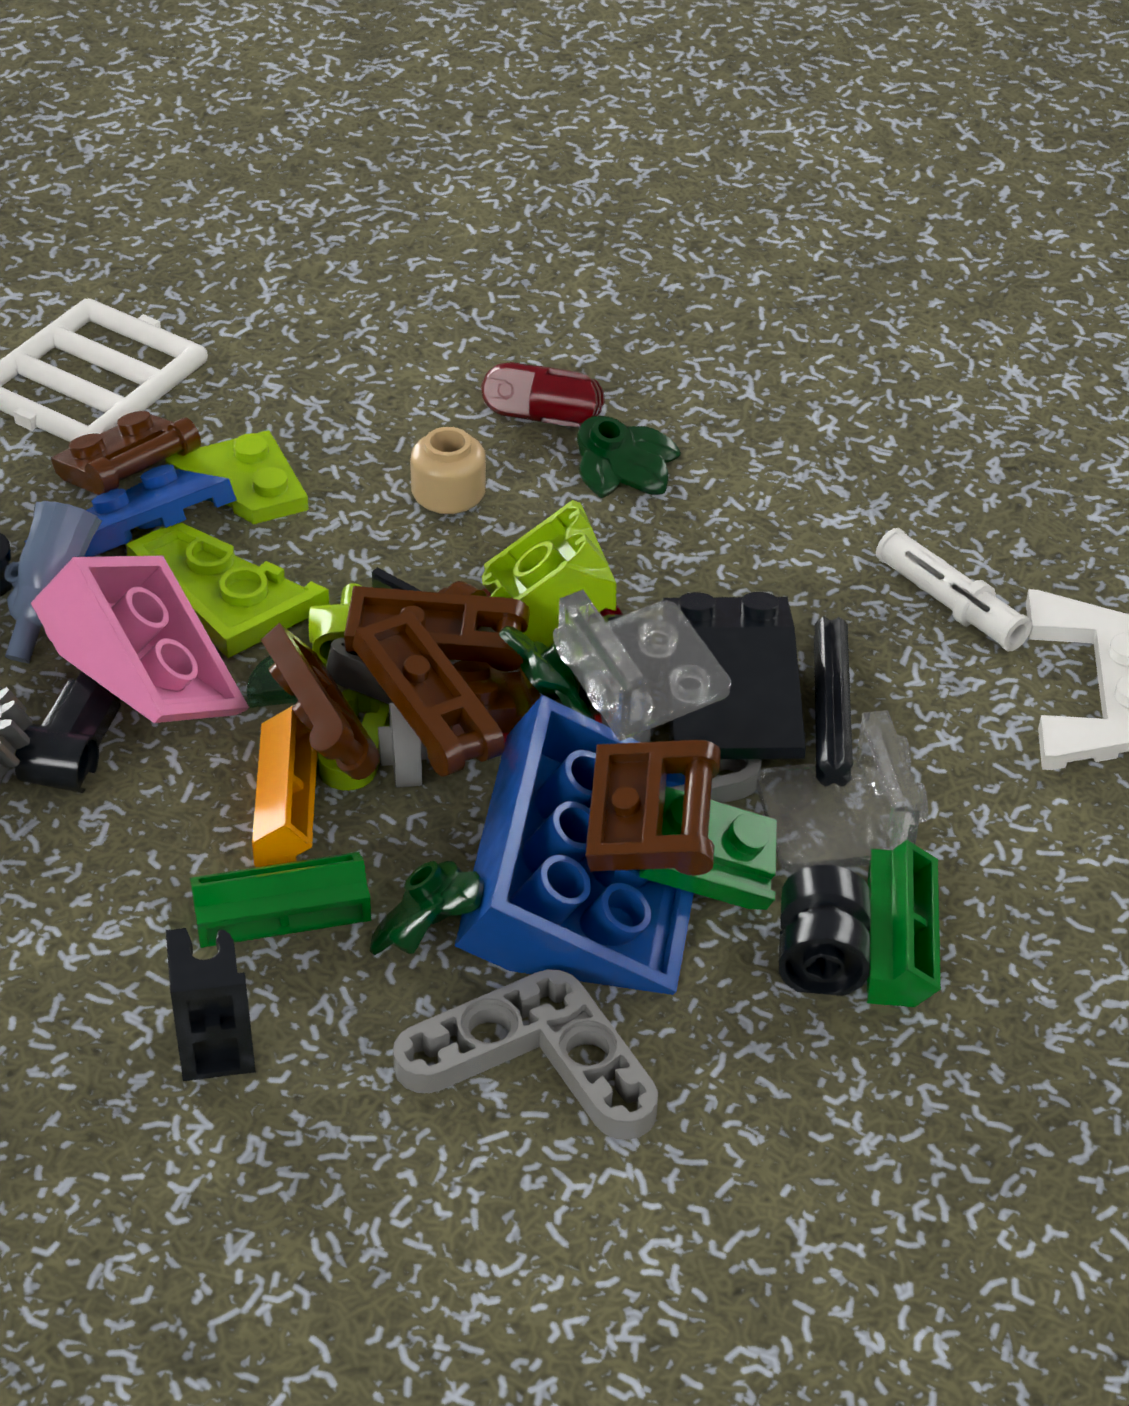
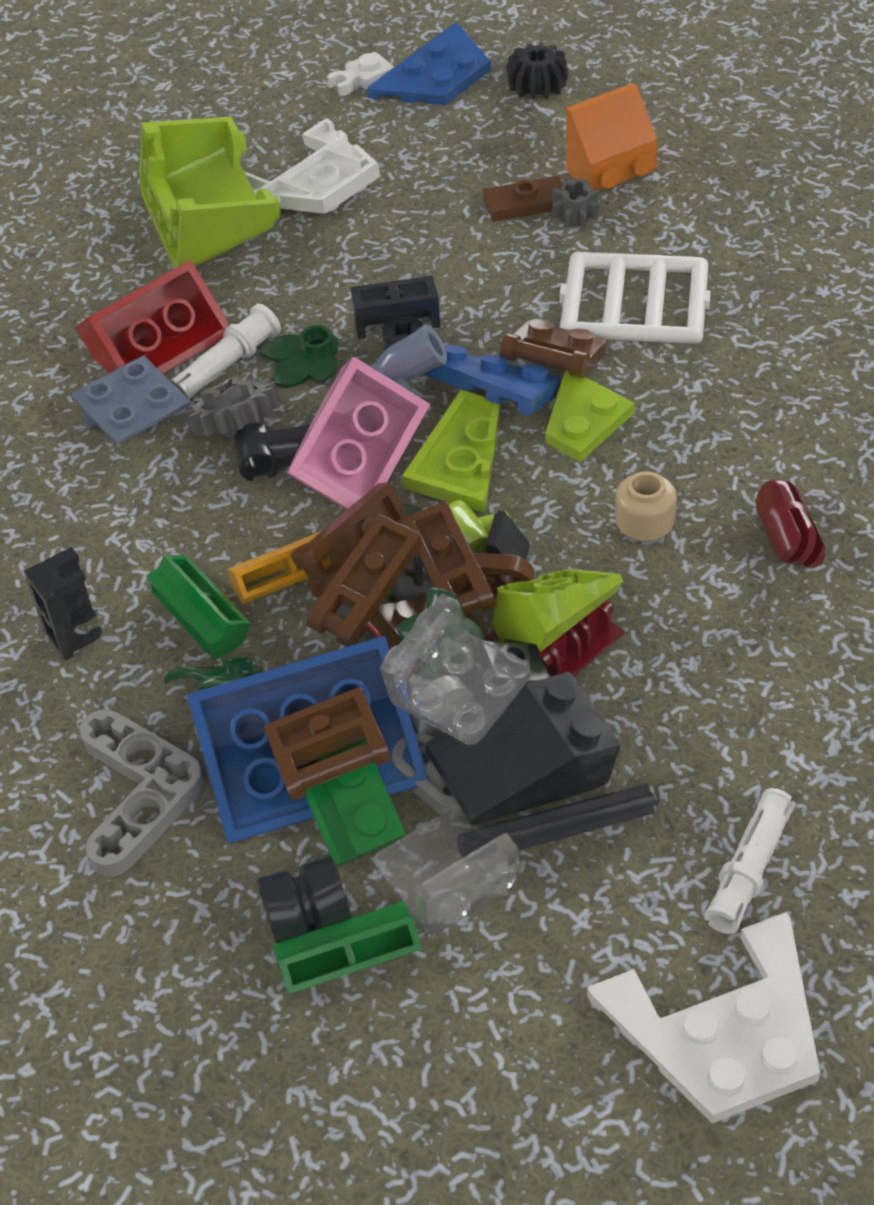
camera: 70 degrees right, 5 degrees up
(623, 455) = (759, 603): dark green plate -> none

